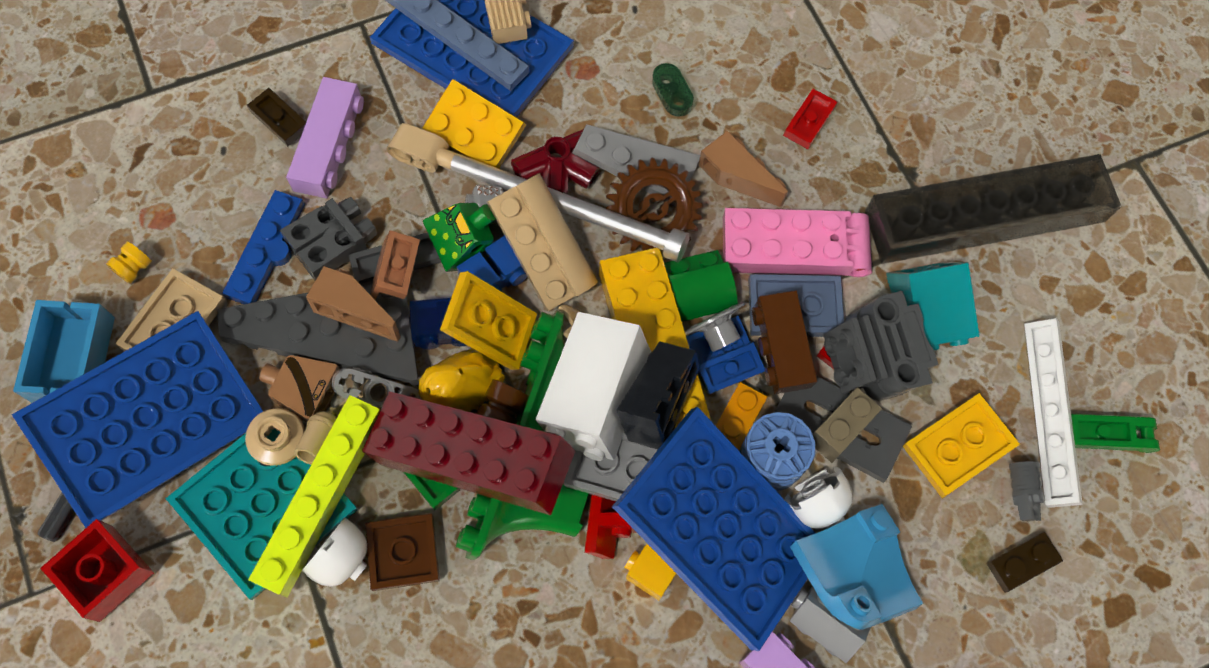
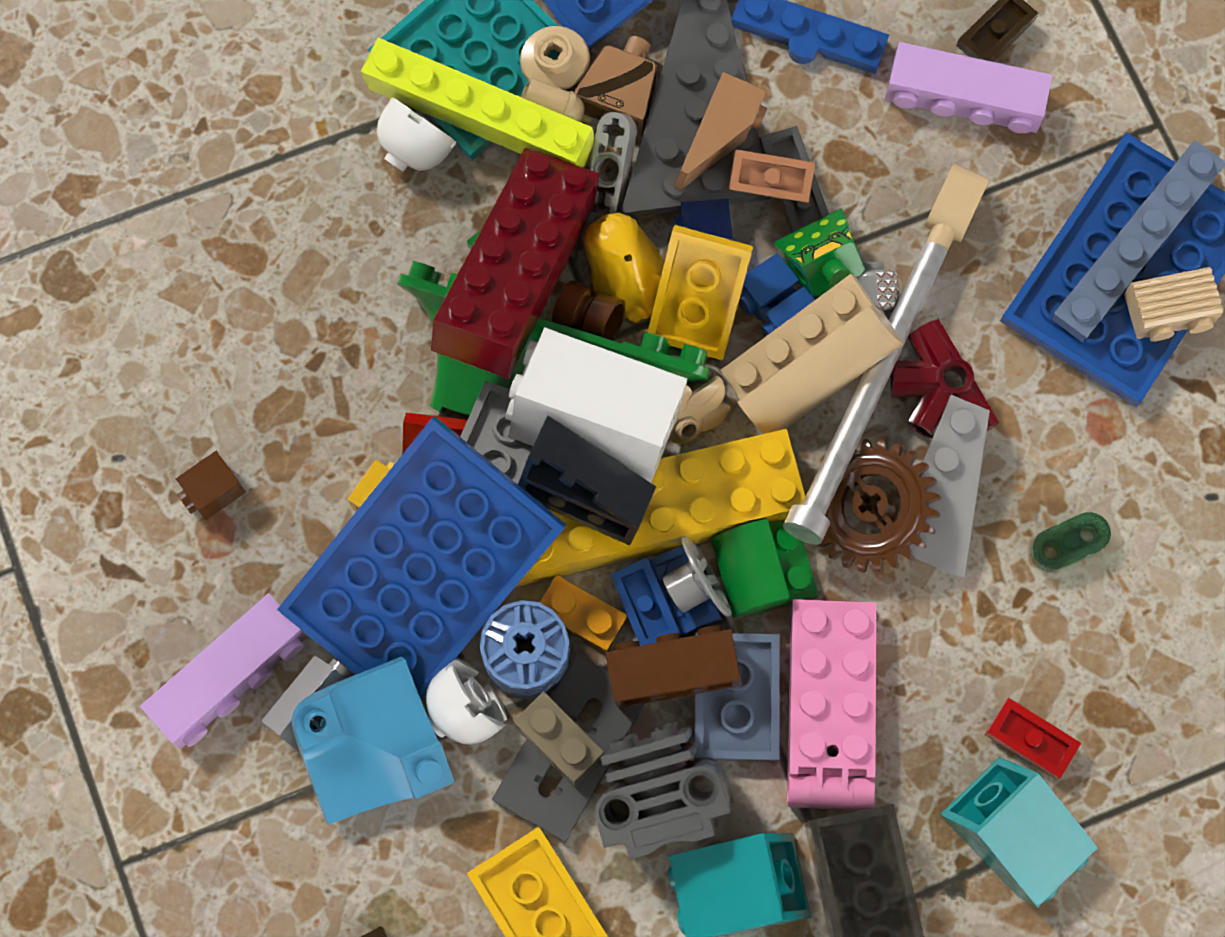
camera: 95 degrees right, 5 degrees up
(328, 235) = (821, 101): dark grey hips -> none
(402, 552) = (417, 210): reddish brown plate -> none
(474, 125) = (993, 273): yellow plate -> none
(738, 170) = (946, 619): medium nougat slope -> none
(873, 128) = (1020, 830): none -> slope

